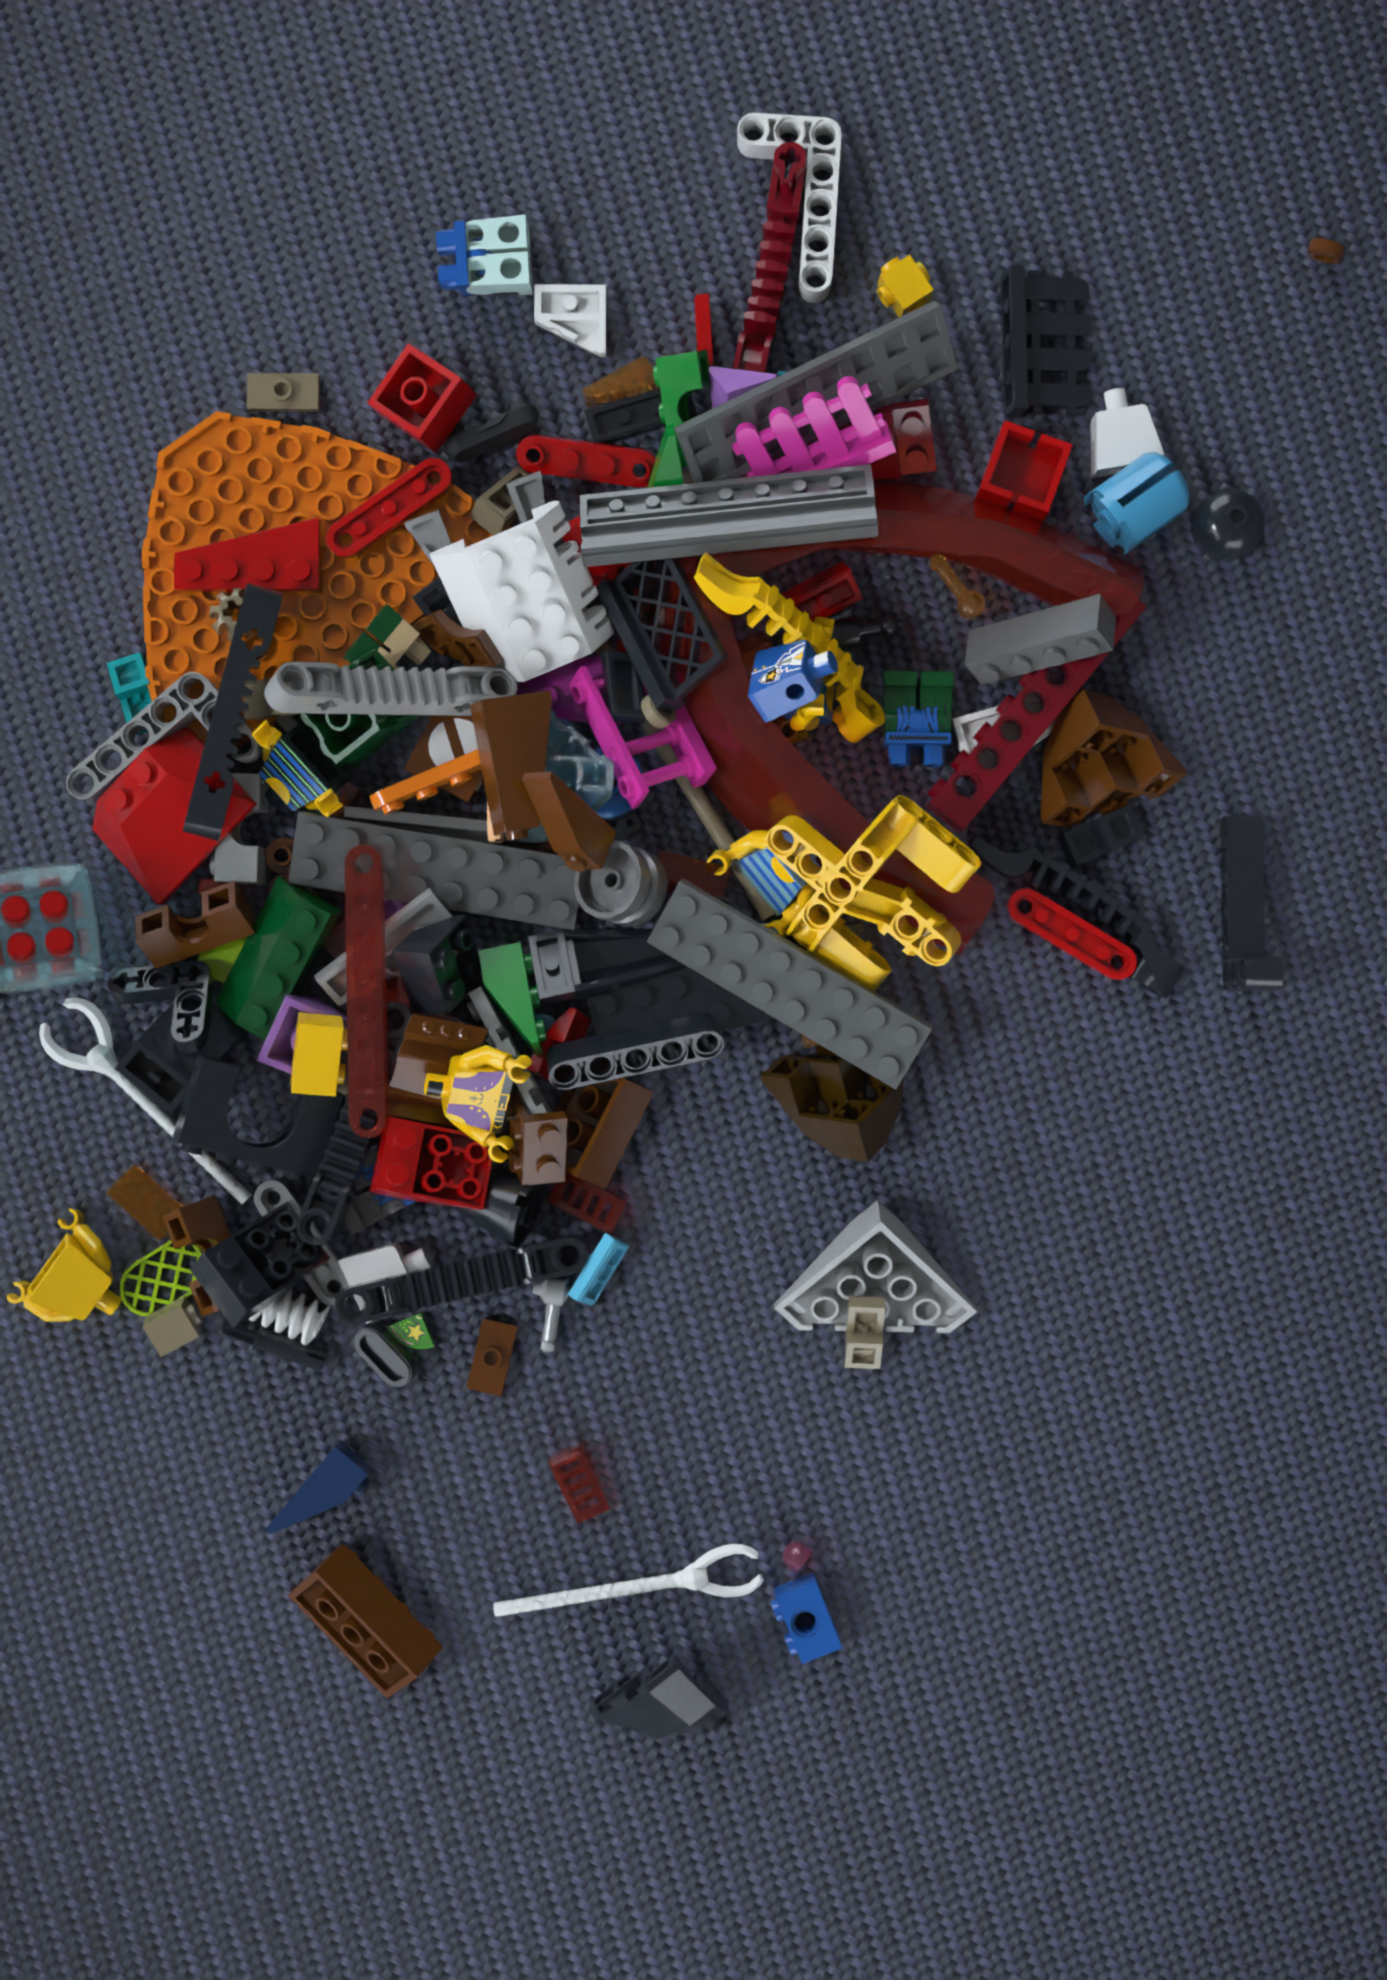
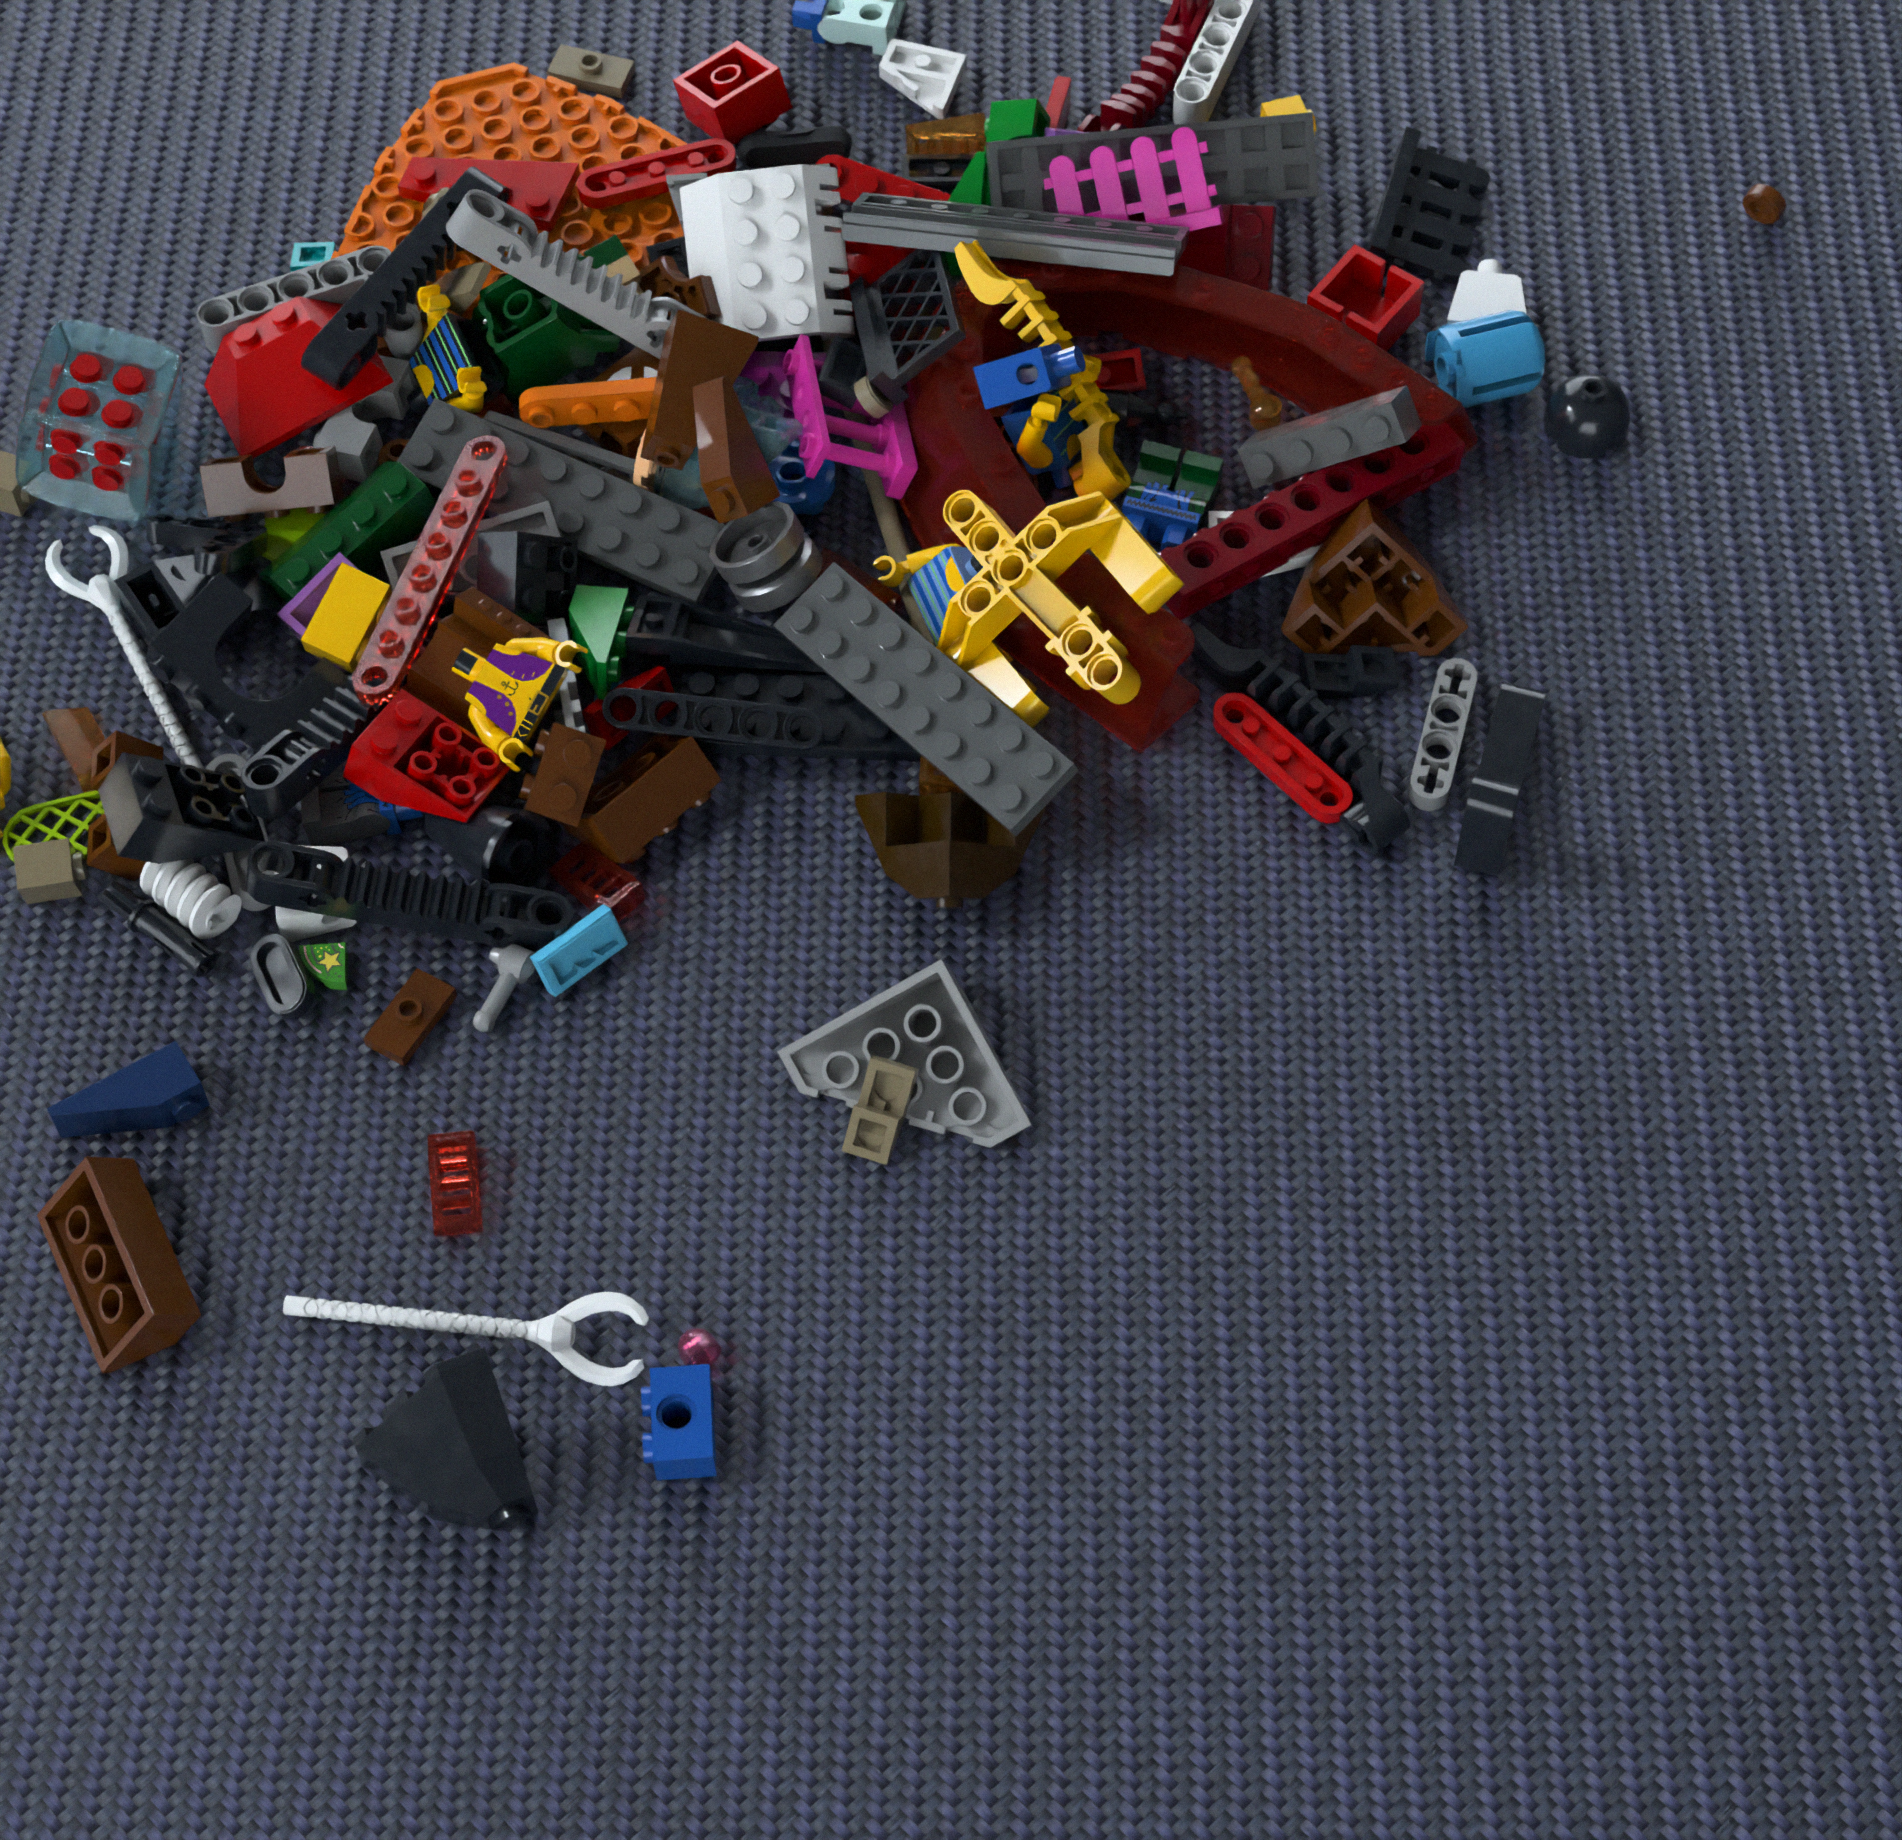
camera: 20 degrees right, 30 degrees down
(1179, 871) = (1440, 733): none -> light grey beam

